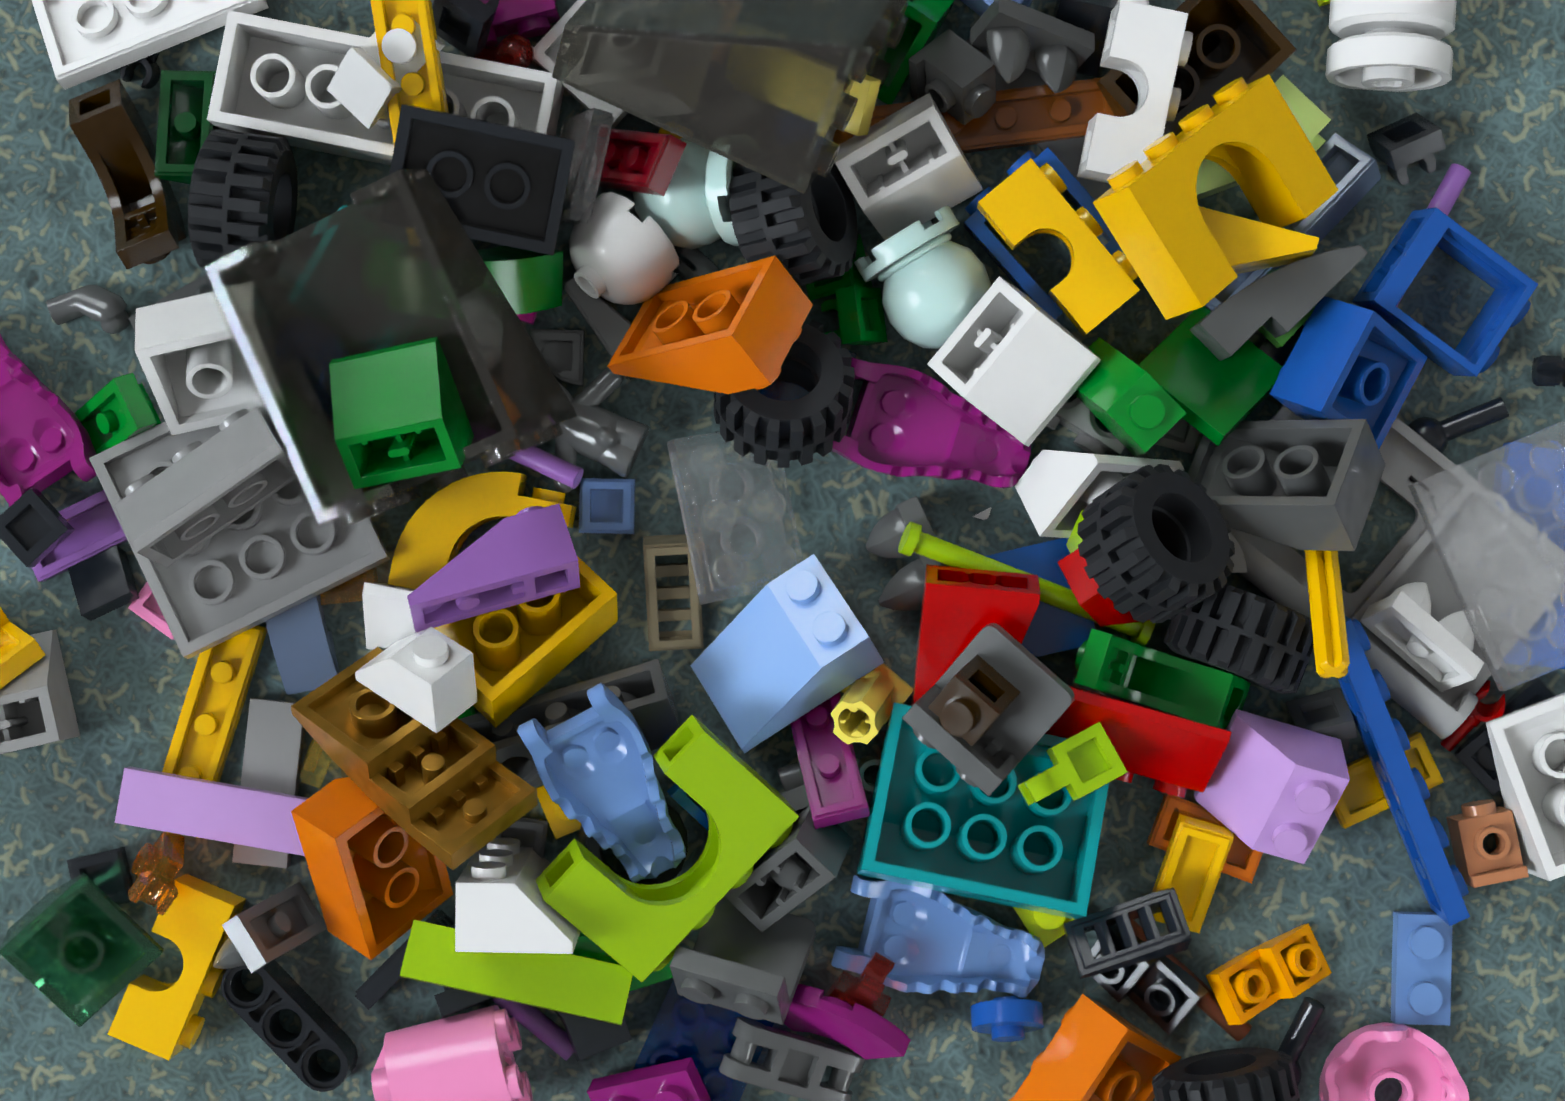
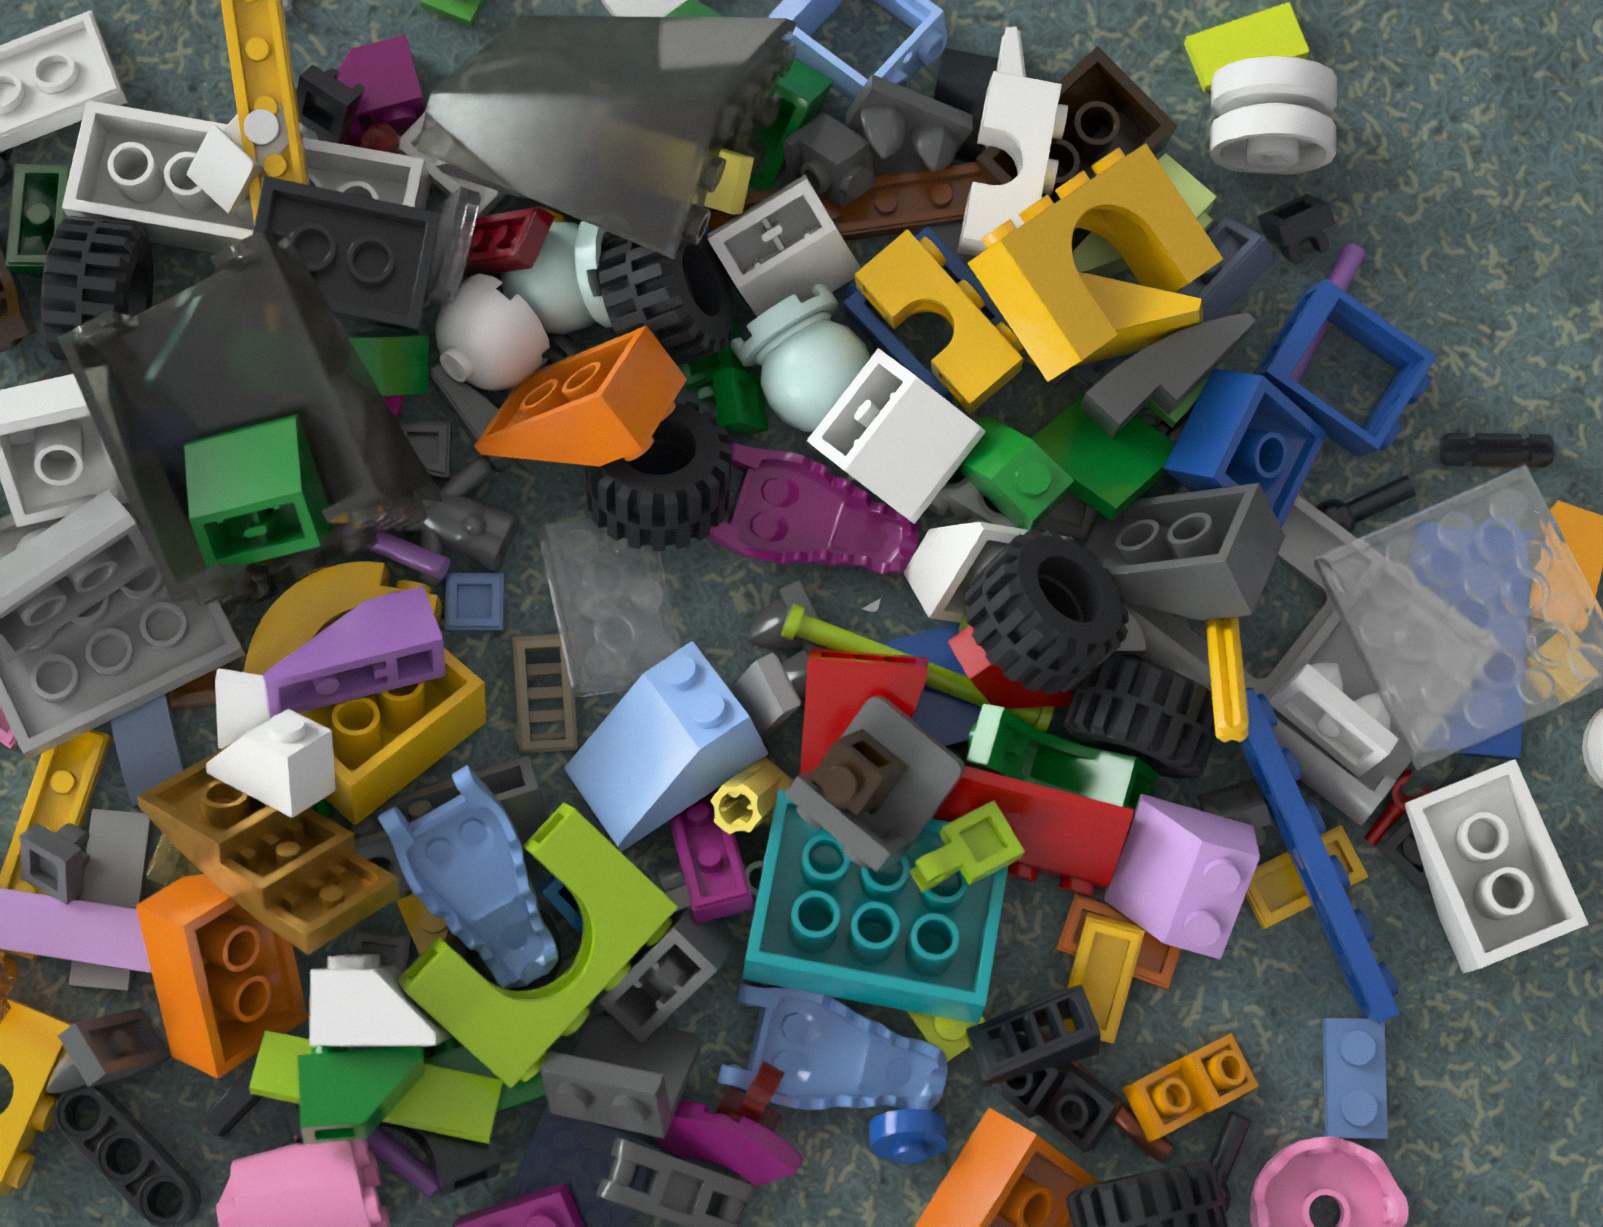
camera: 10 degrees left, 10 degrees down
(217, 751) = (54, 860): none -> dark grey tile
(492, 987) = (353, 1091): none -> green slope
(882, 609) = (766, 694): none -> light grey tile
(1467, 838) = (1401, 955): nougat brick -> none

